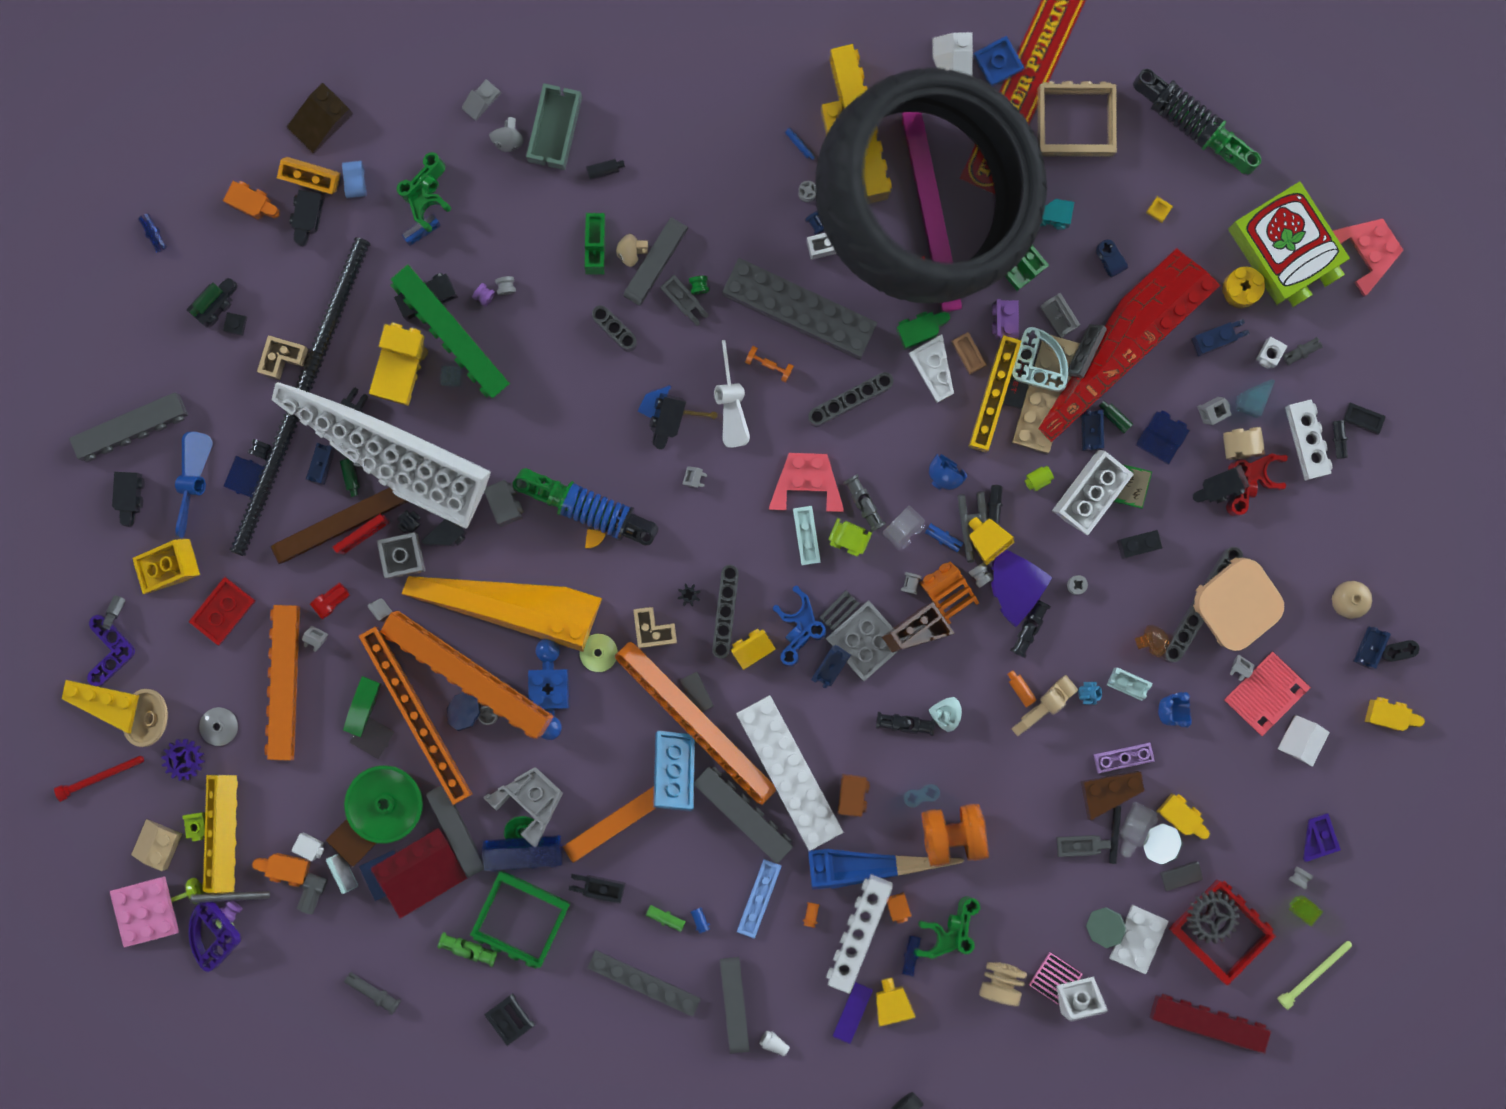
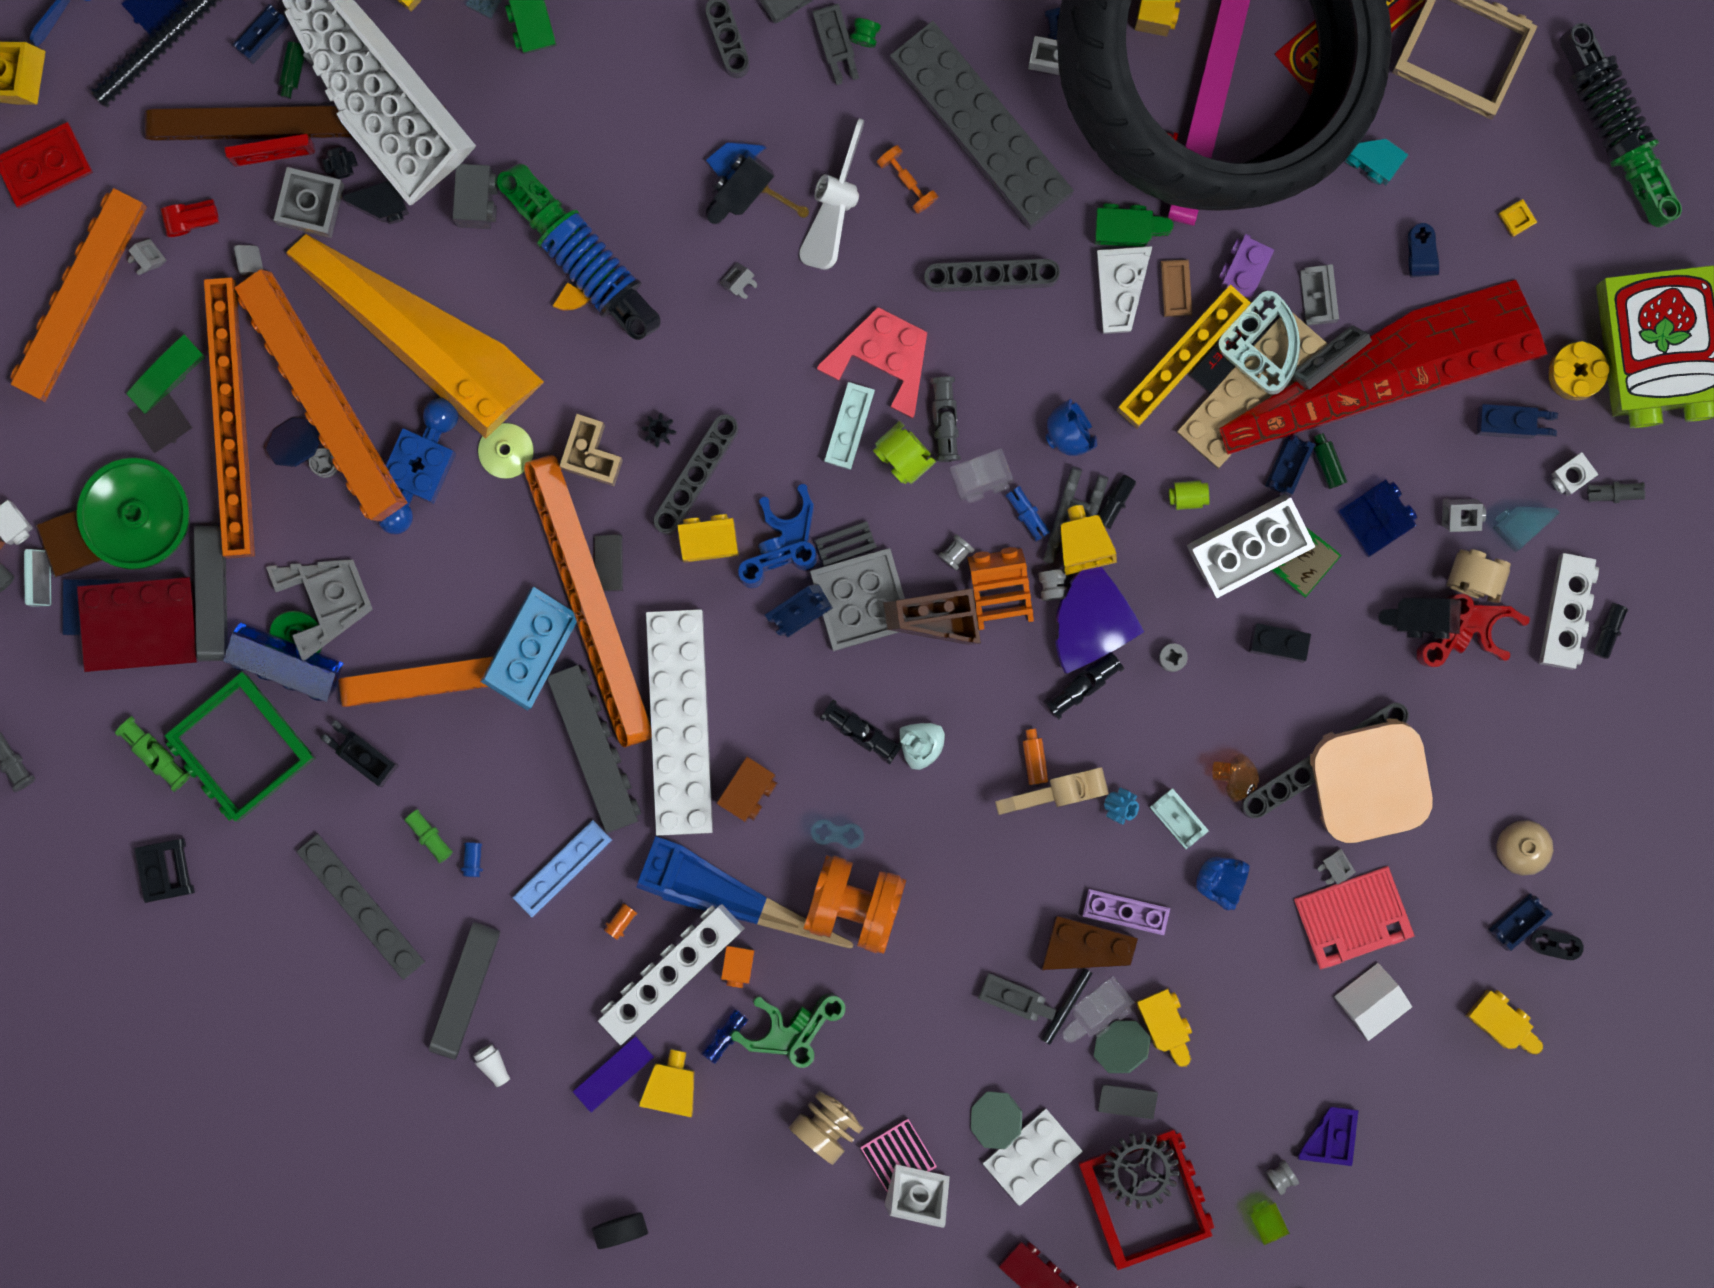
camera: 25 degrees right, 0 degrees up
(1027, 269) = (1304, 211): green slope -> none
(1364, 418) = (1655, 618): black tile -> none

